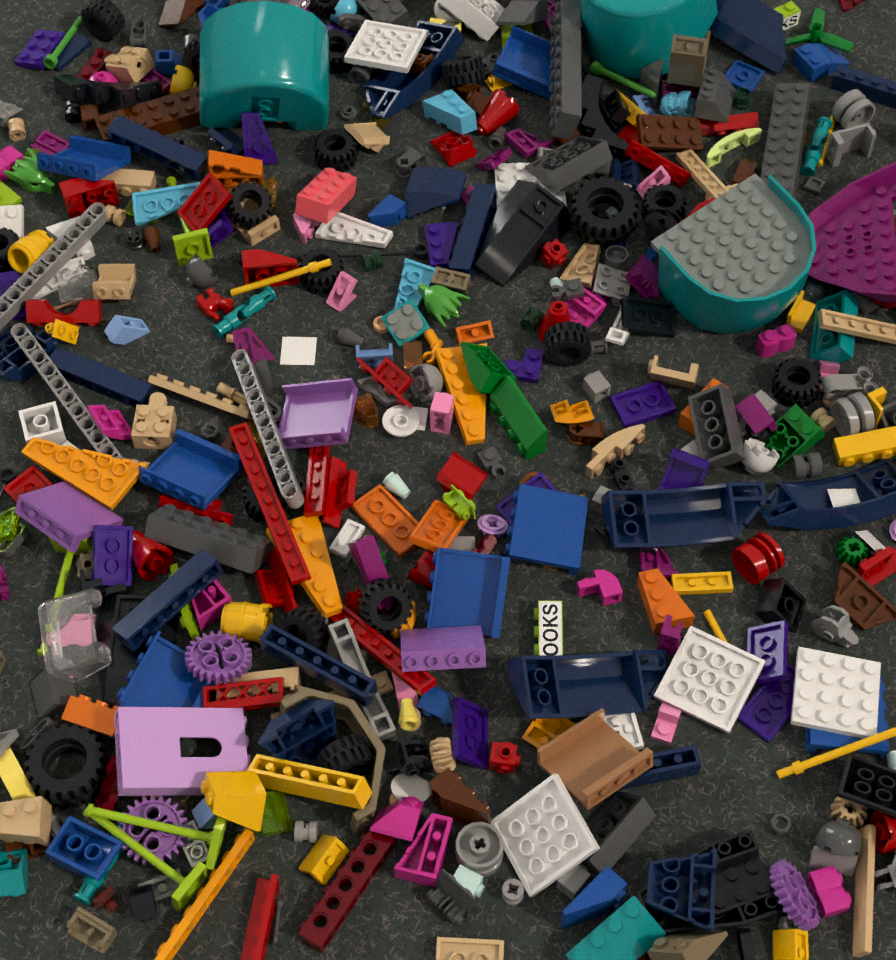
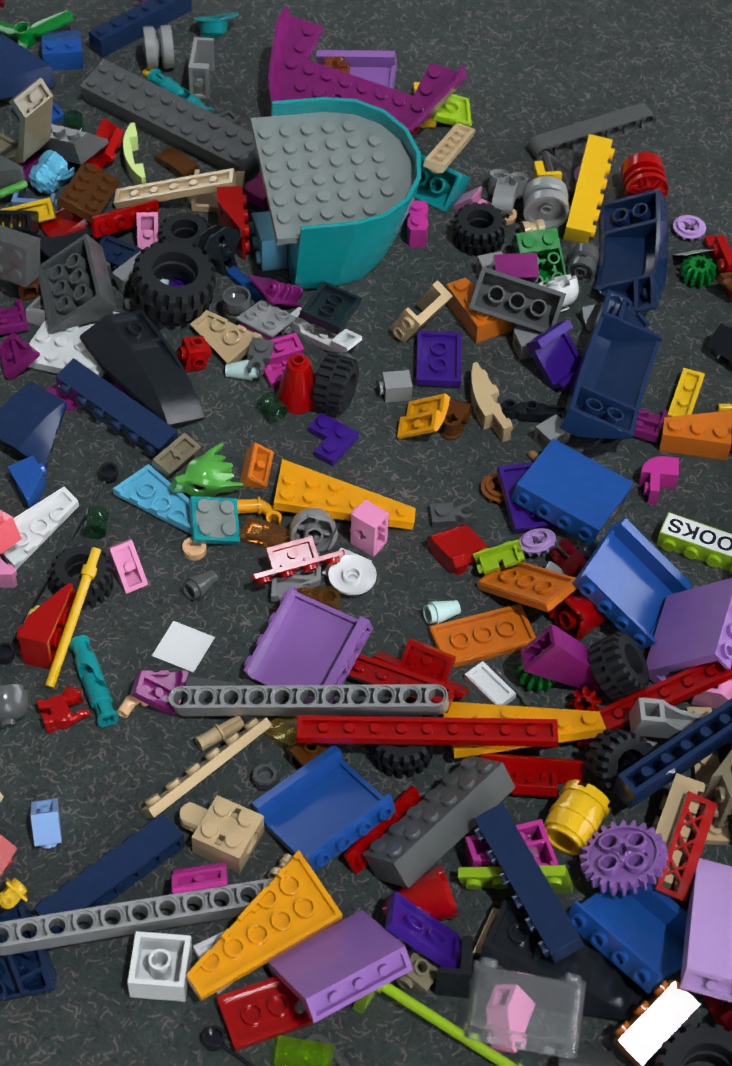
camera: 70 degrees left, 5 degrees down
(374, 356) = (240, 569): medium blue hinge -> none
(440, 242) = (97, 447): dark purple wing -> none
(484, 367) = (335, 465): green slope -> none
(518, 419) = (411, 462): green slope -> none
(758, 558) = (683, 337): red wheel -> none
(843, 497) = (635, 252): white sticker -> none

